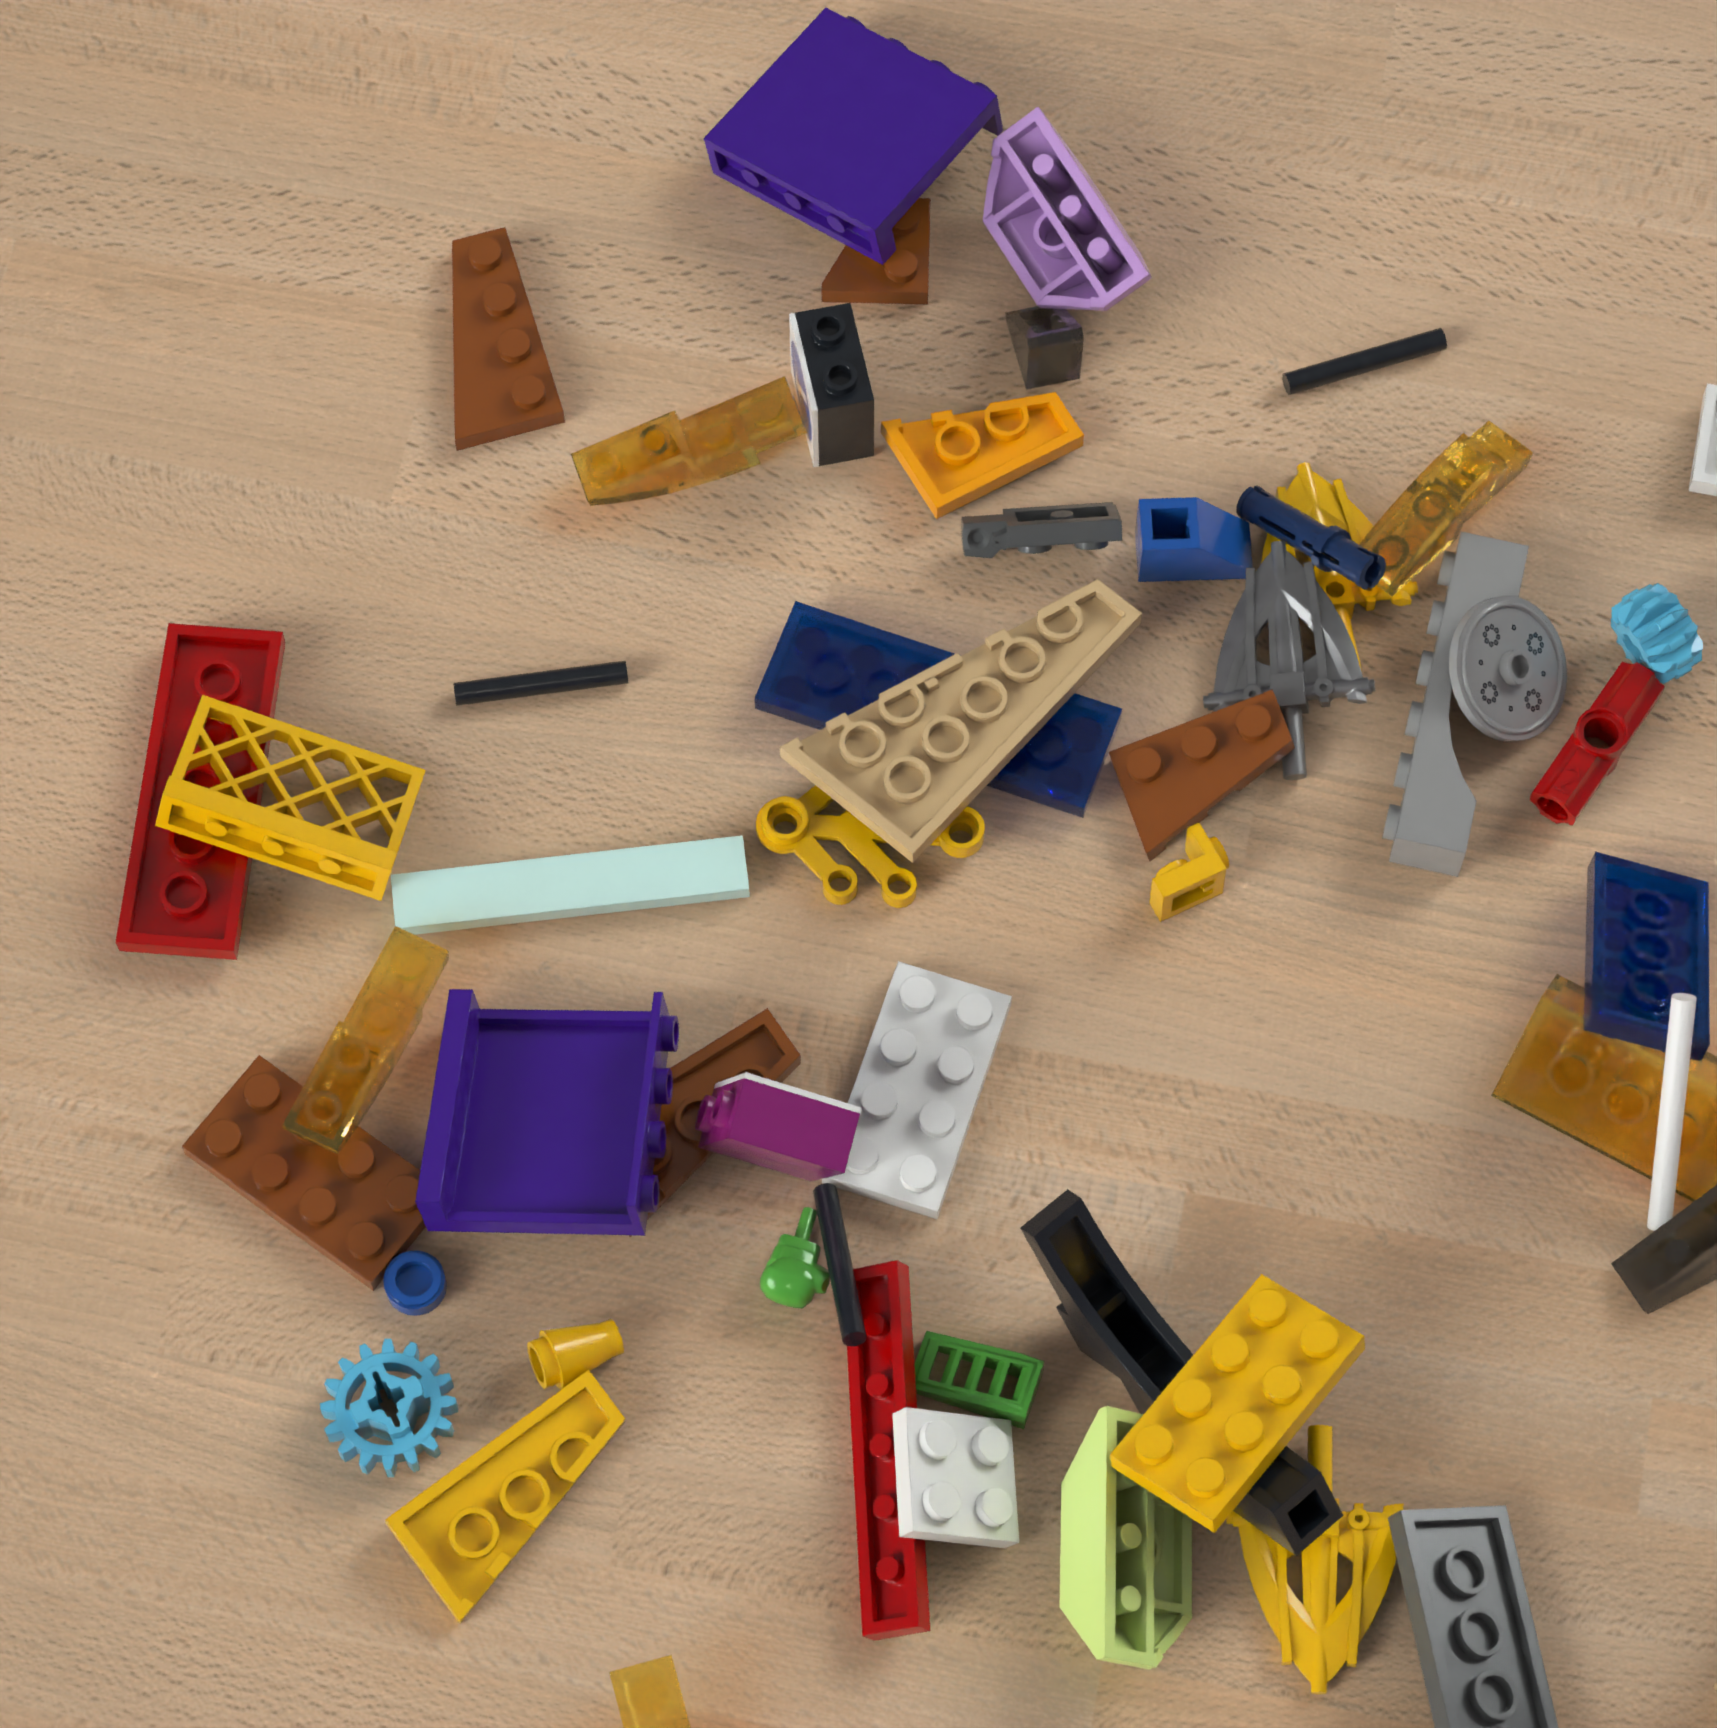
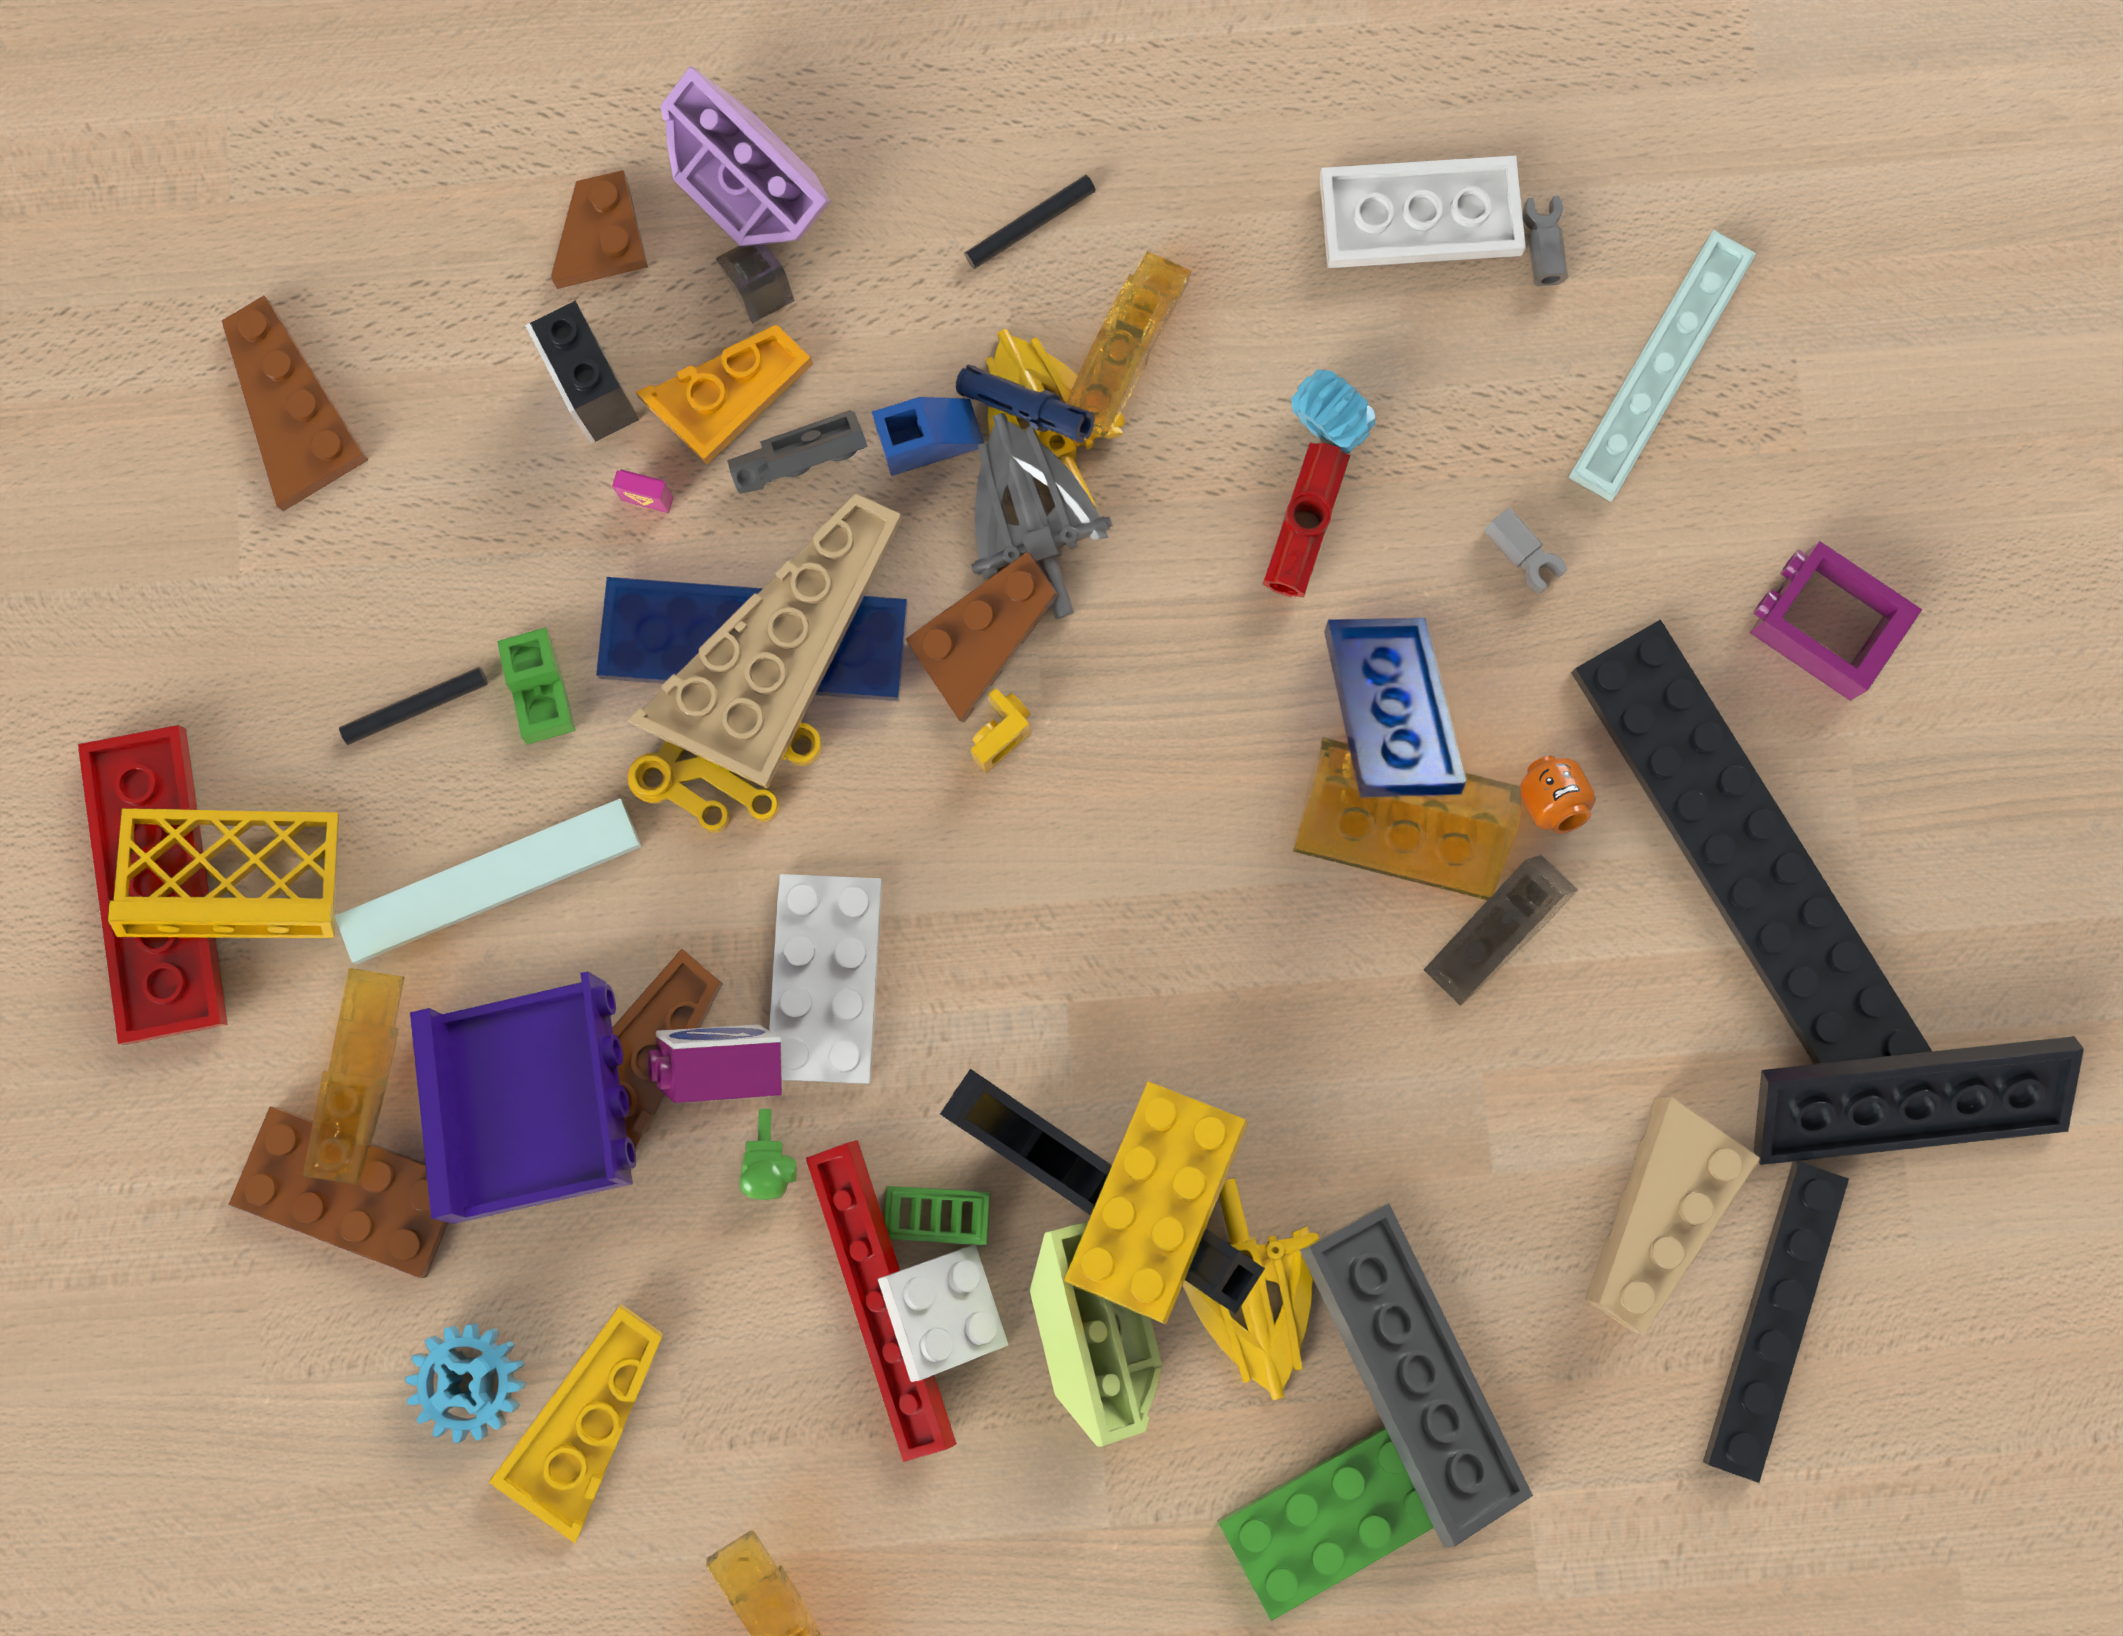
camera: 15 degrees left, 15 degrees up
(415, 1283) = (457, 1263): blue tile -> none
(569, 1351) = (602, 1290): yellow cone -> none
(682, 697) = (536, 686): none -> bright green slope
(691, 451) = (481, 461): clear yellow slope -> none
(839, 1265) = (803, 1160): black bar -> none
(849, 131) = (535, 127): dark purple panel -> none
(859, 525) = (642, 490): none -> dark pink tile
(1436, 803) = (1187, 612): light grey arch -> none
(1508, 668) = (1217, 476): light grey shield -> none
(1671, 1109) = (1446, 840): white bar -> none

